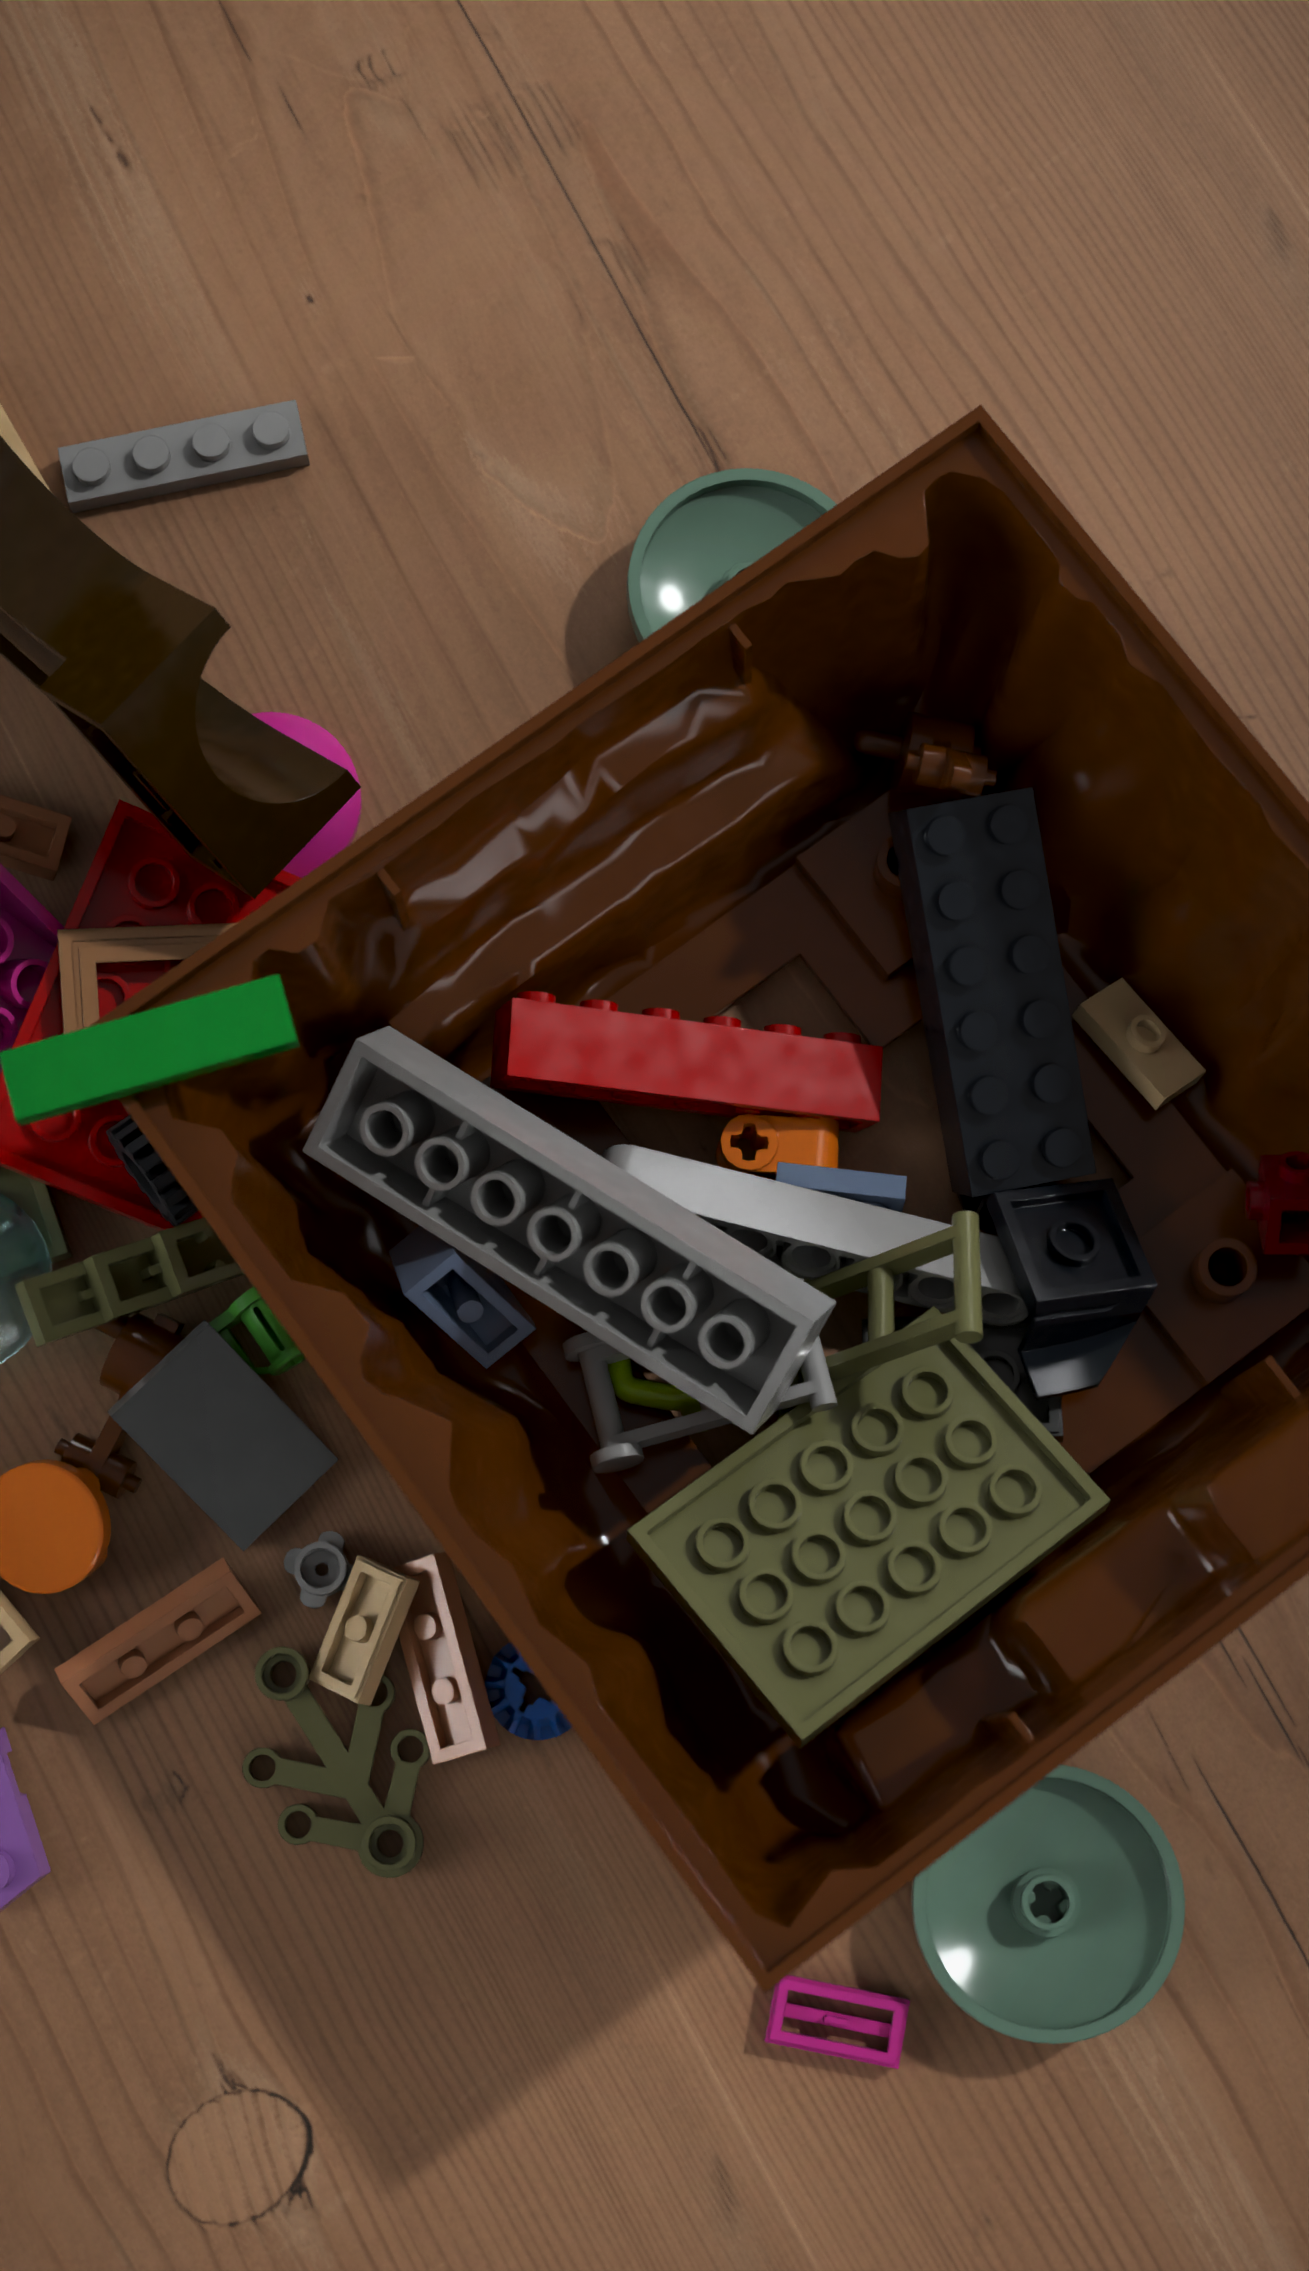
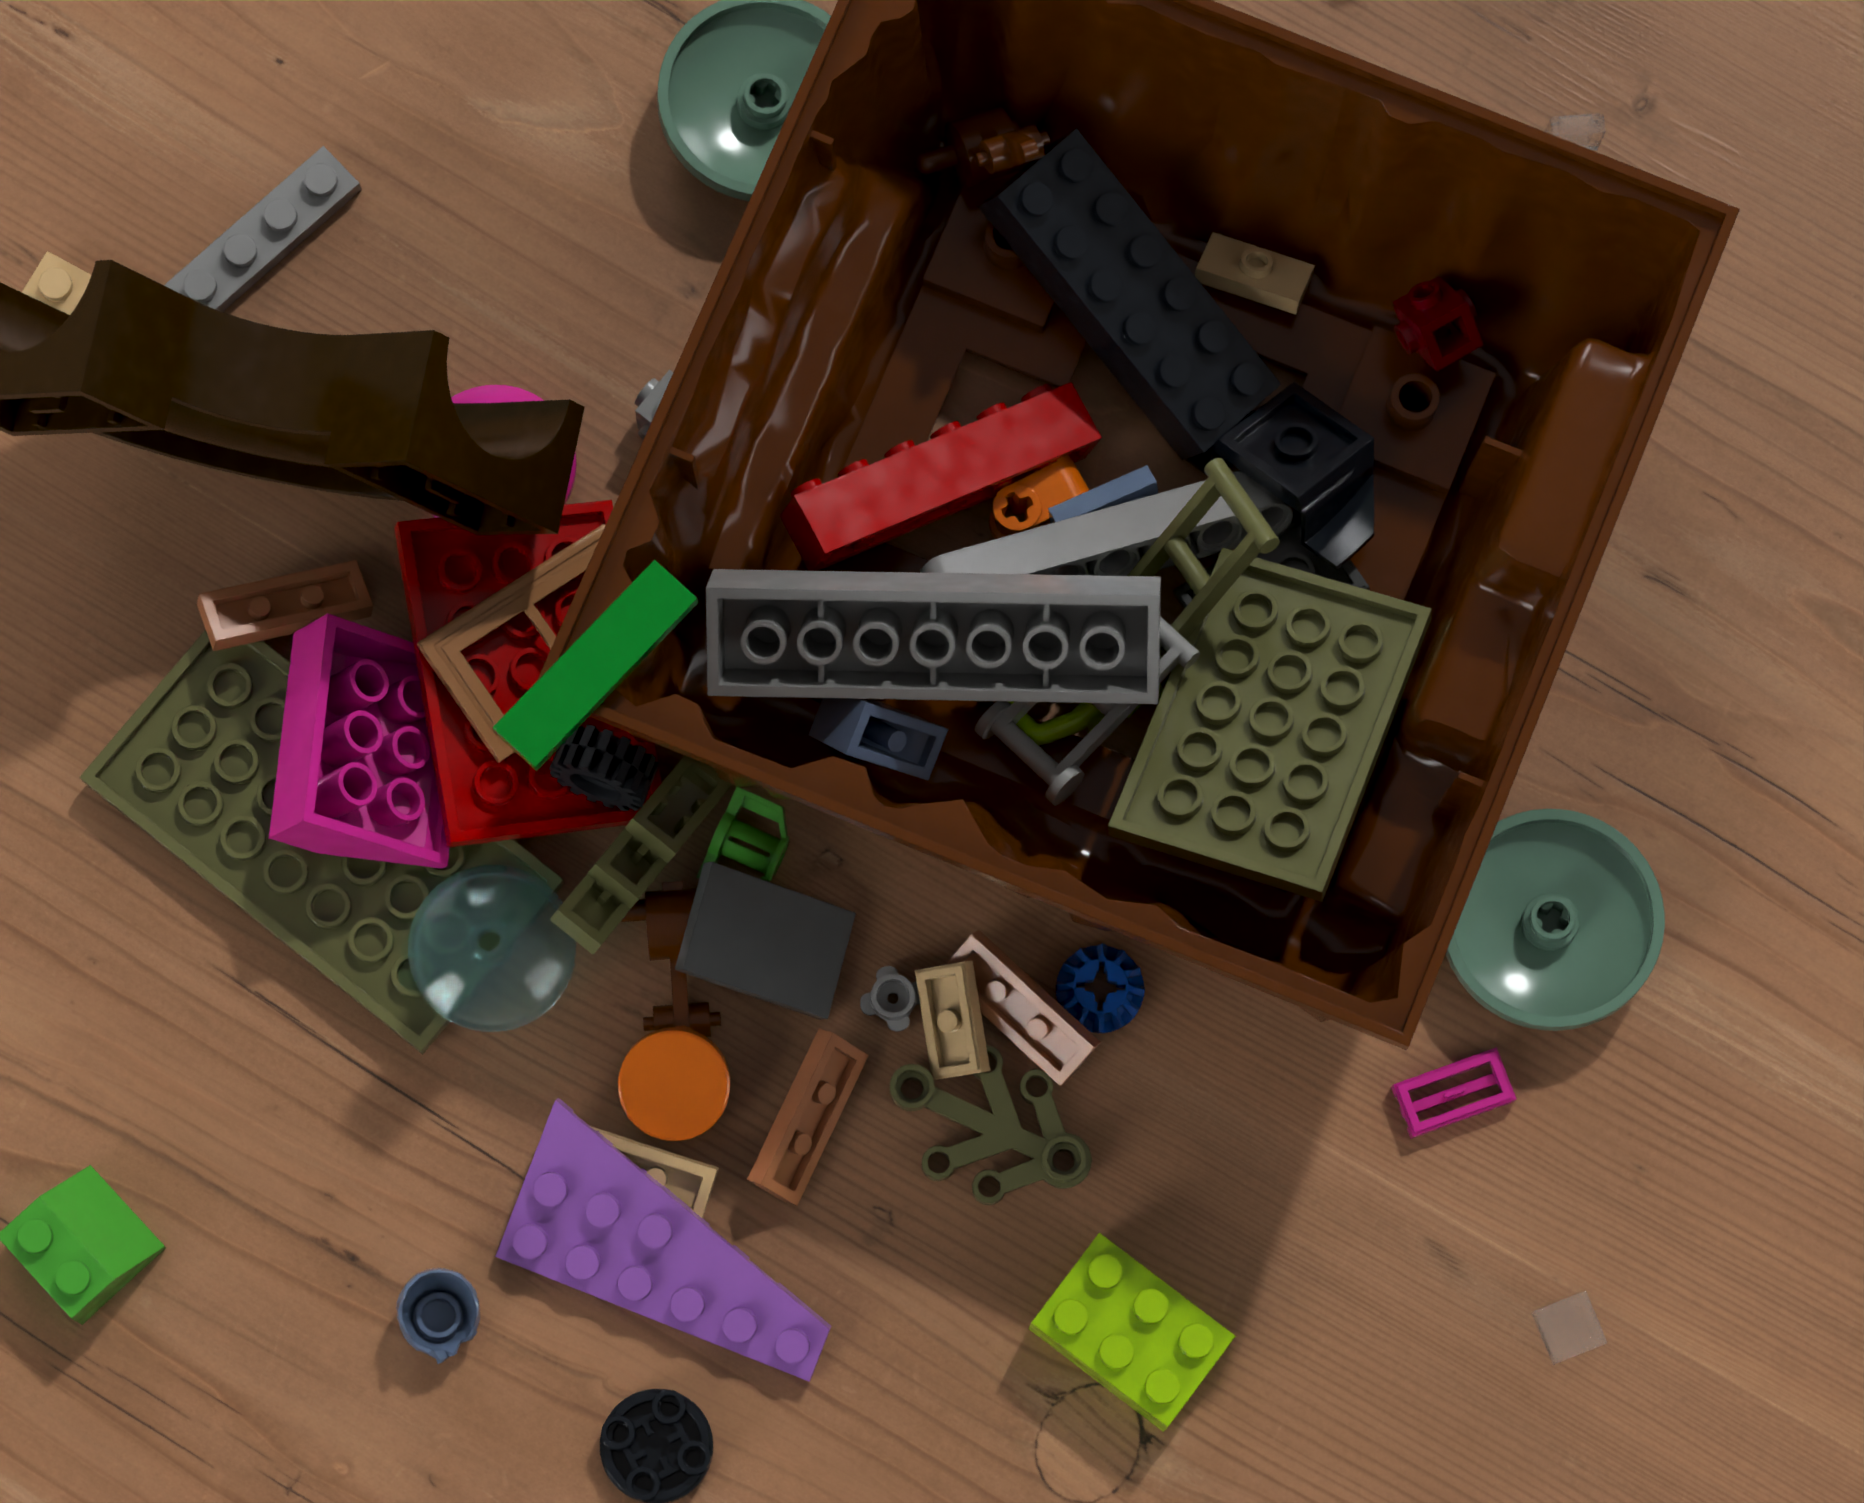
camera: 35 degrees left, 0 degrees up
(343, 2074) = (1131, 1332): none -> lime brick

